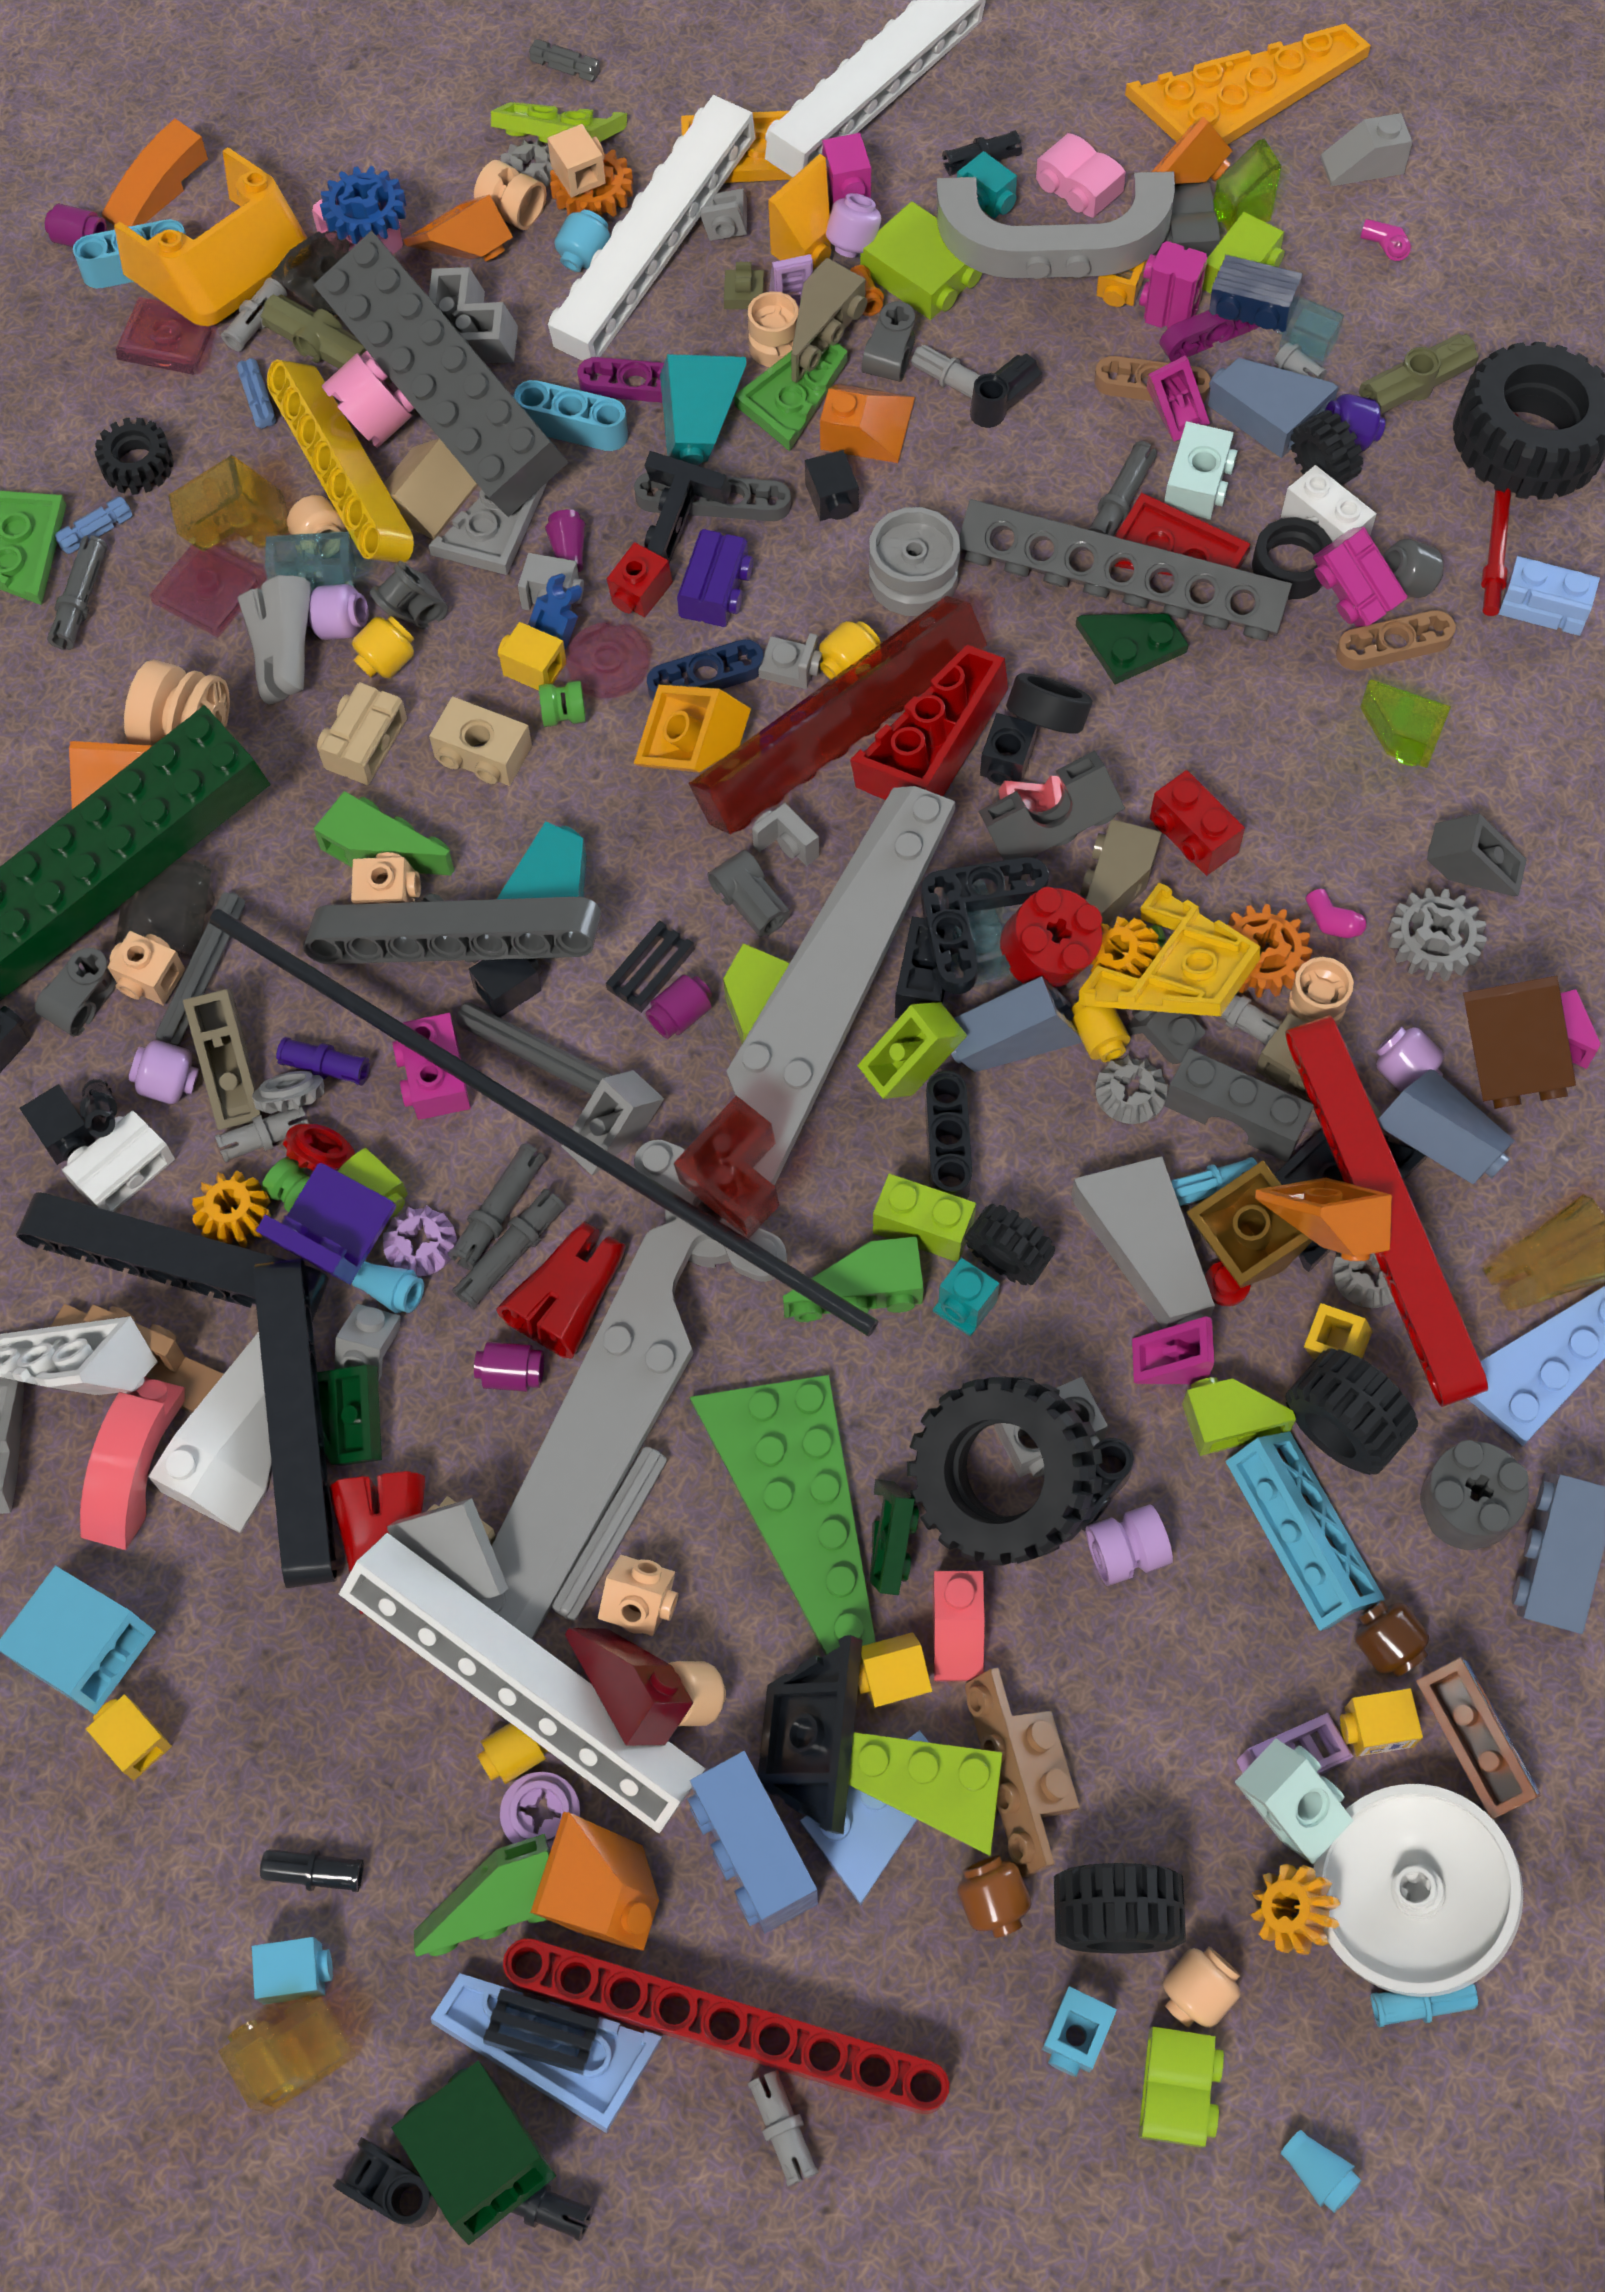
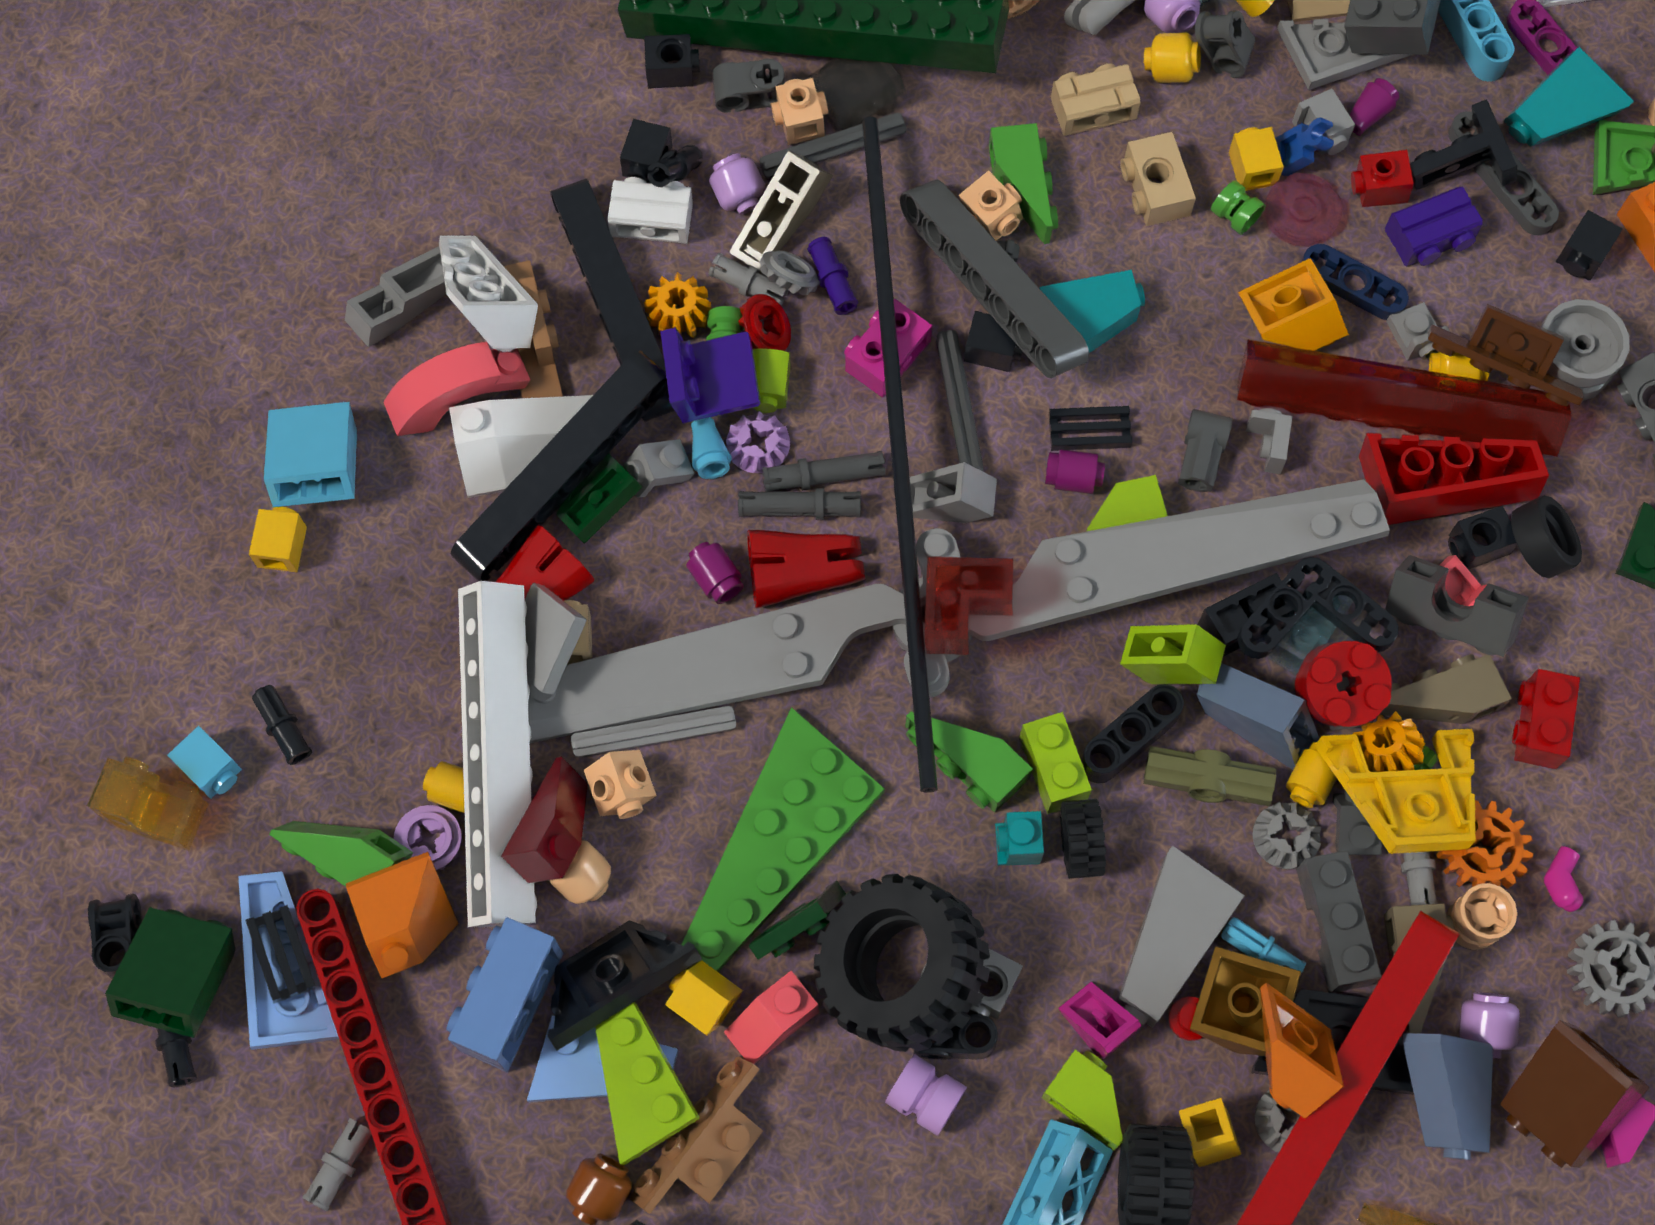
camera: 50 degrees right, 5 degrees up
(876, 597) = (1513, 348): none -> reddish brown bracket
(1034, 1107) = (1210, 776): none -> olive piece

